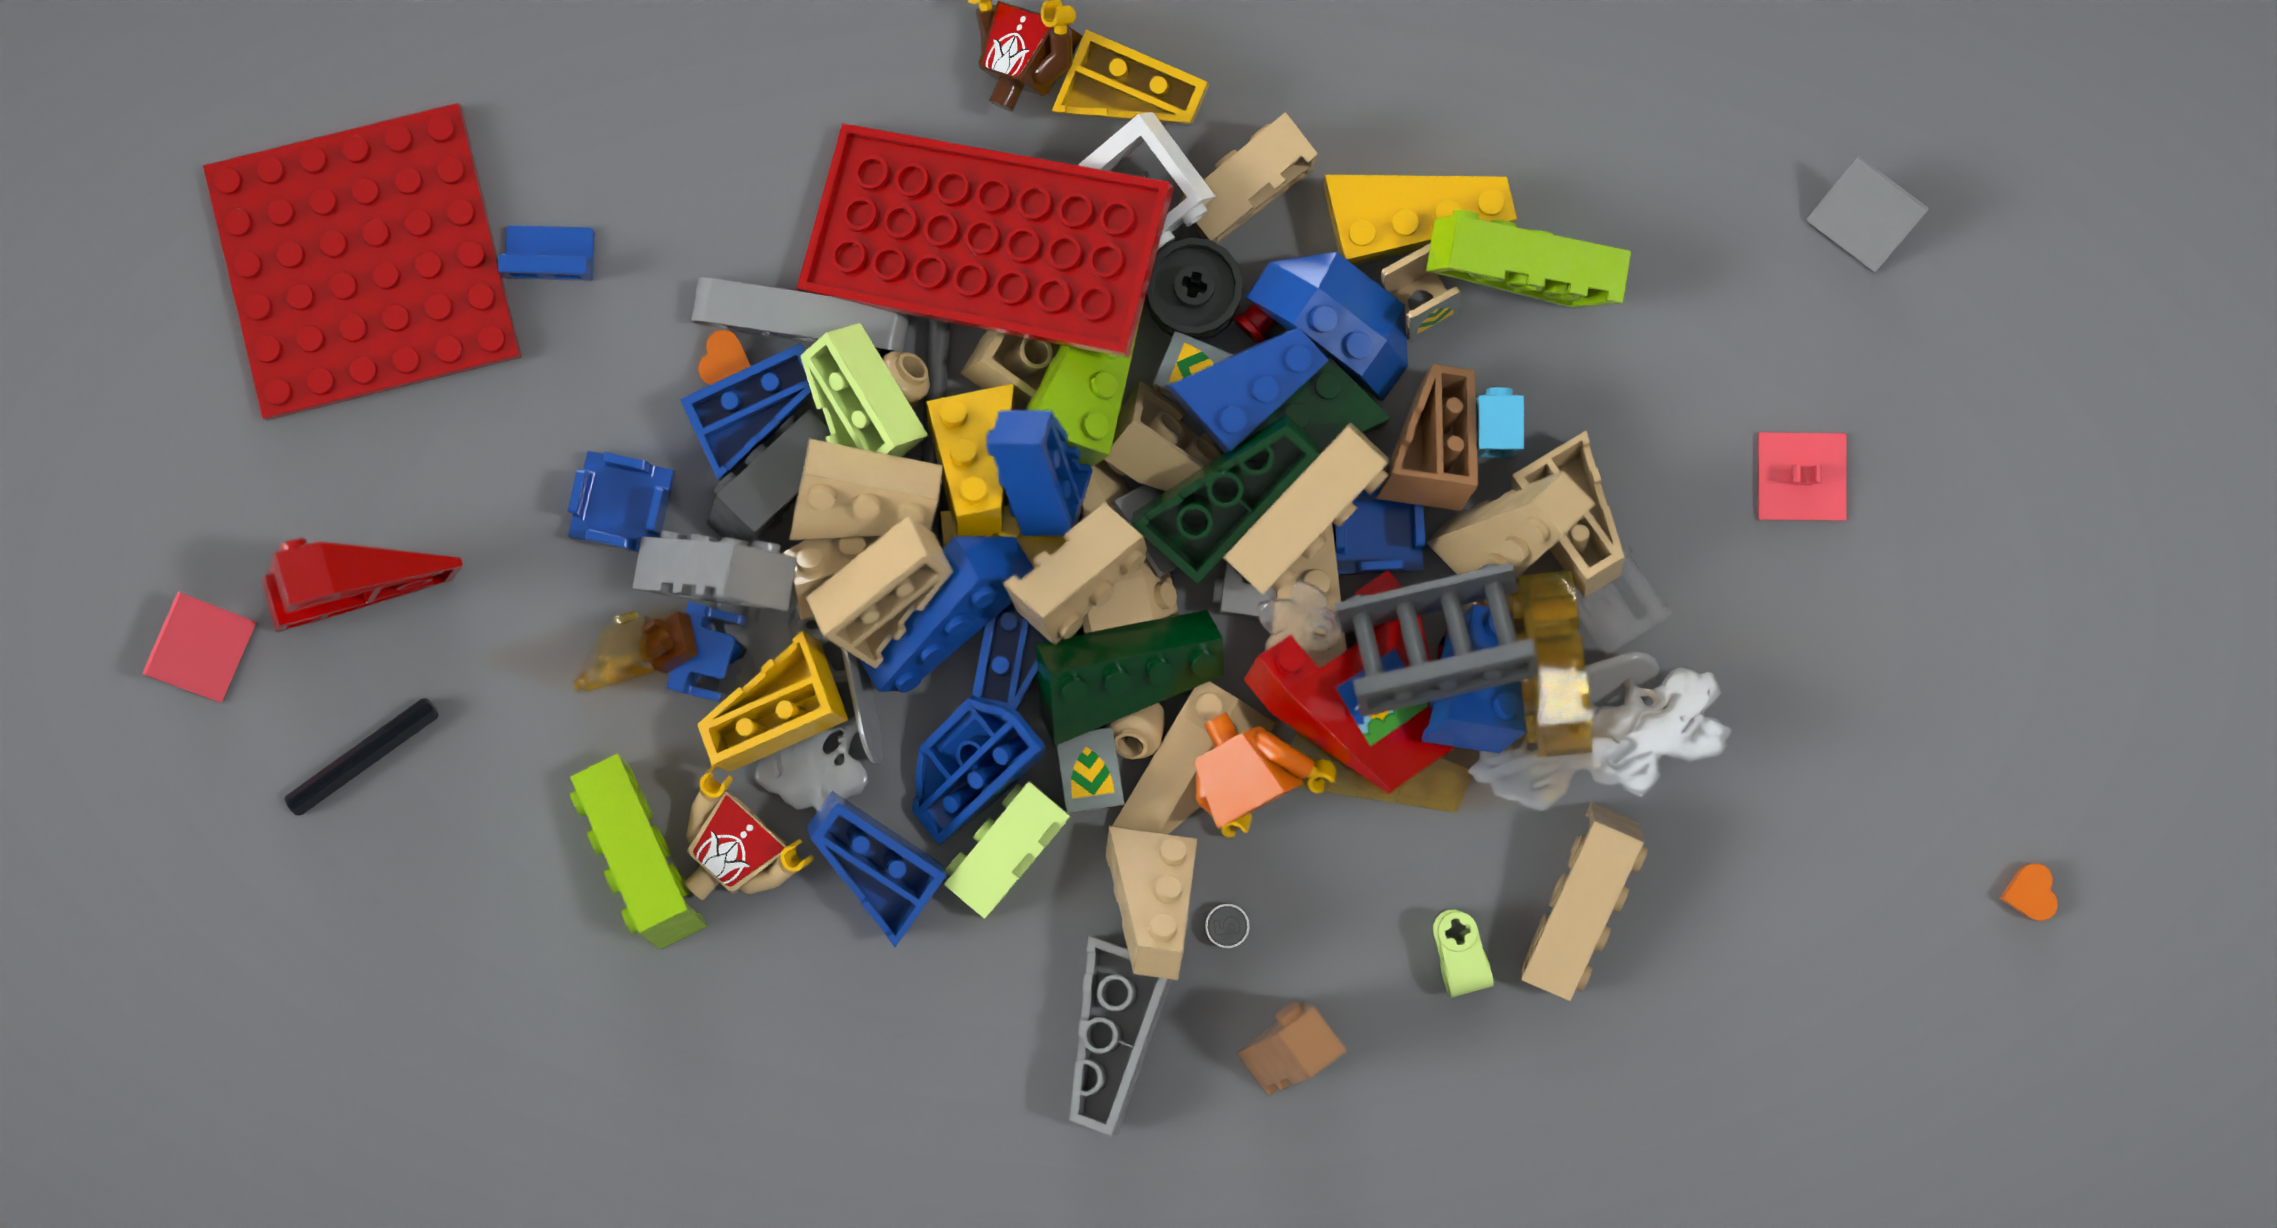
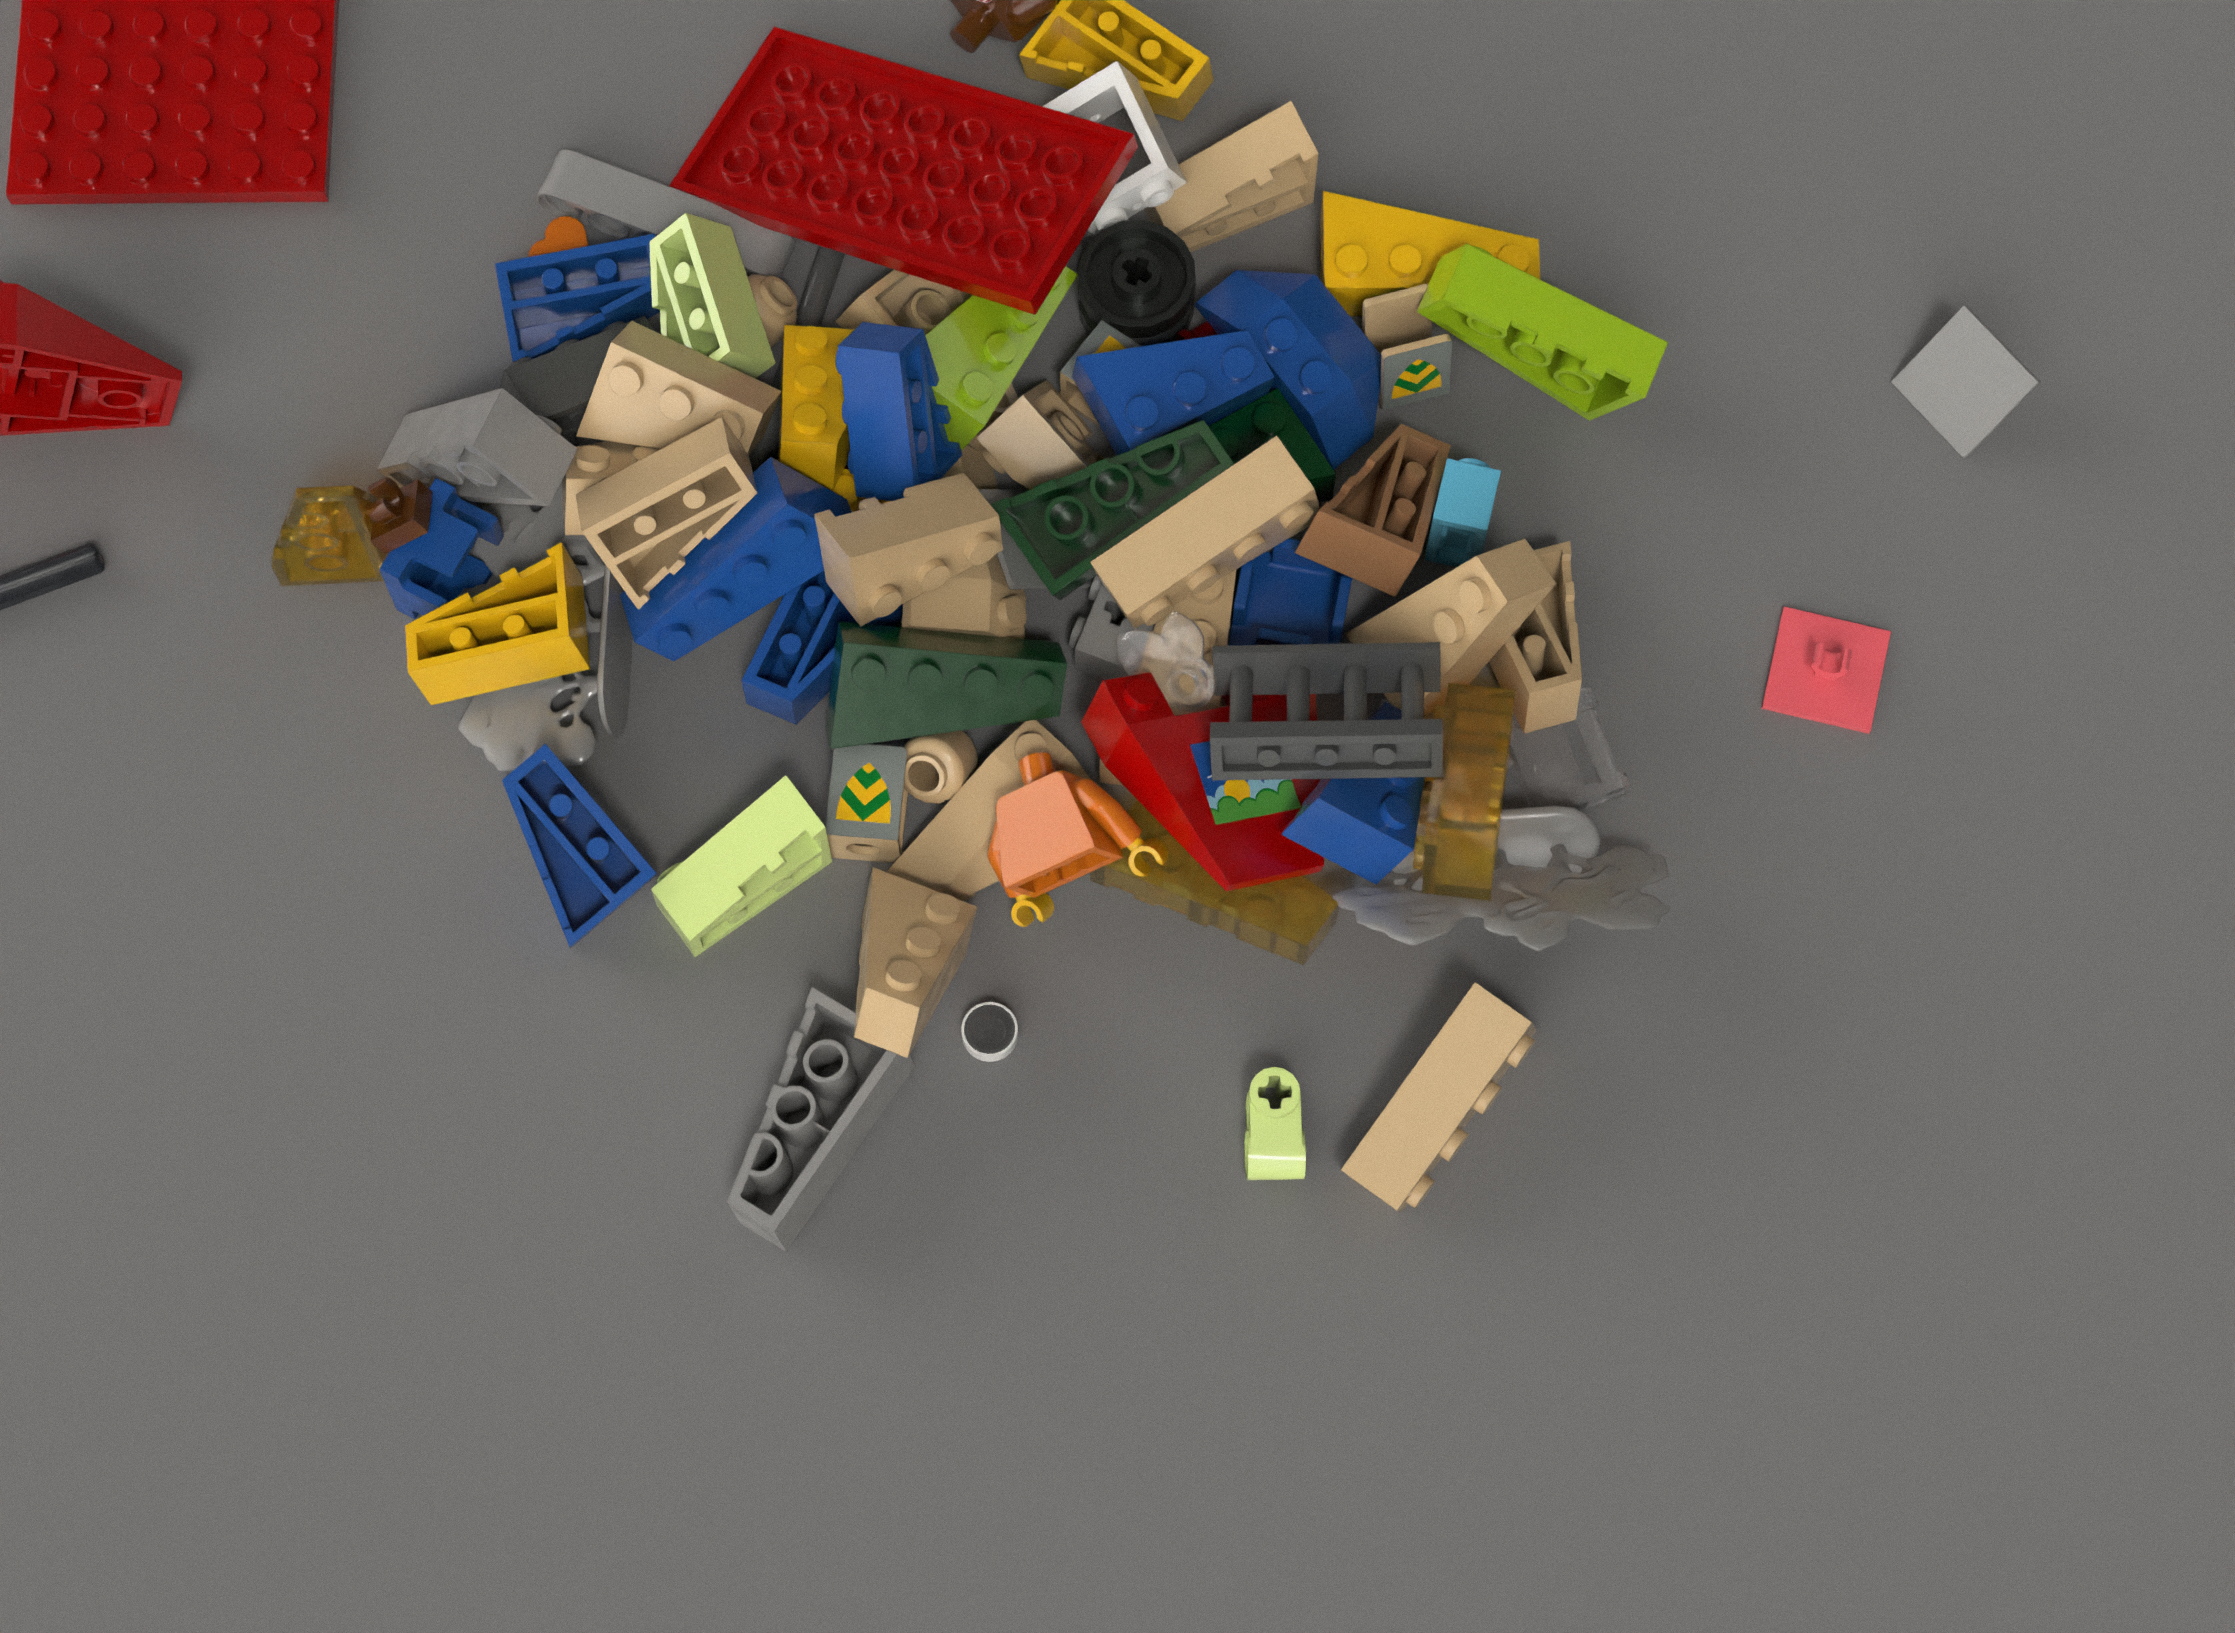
camera: 15 degrees right, 15 degrees down
(548, 253) = (392, 95): blue panel -> none
(619, 500) = (389, 371): blue panel -> none
(634, 853) = (288, 775): lime wedge -> none
(735, 844) = (411, 788): torso -> none
(971, 764) = (726, 756): blue wedge -> none
(1291, 1048) = (1032, 1180): medium nougat wedge -> none
(2031, 892) = (2016, 1227): orange tile -> none

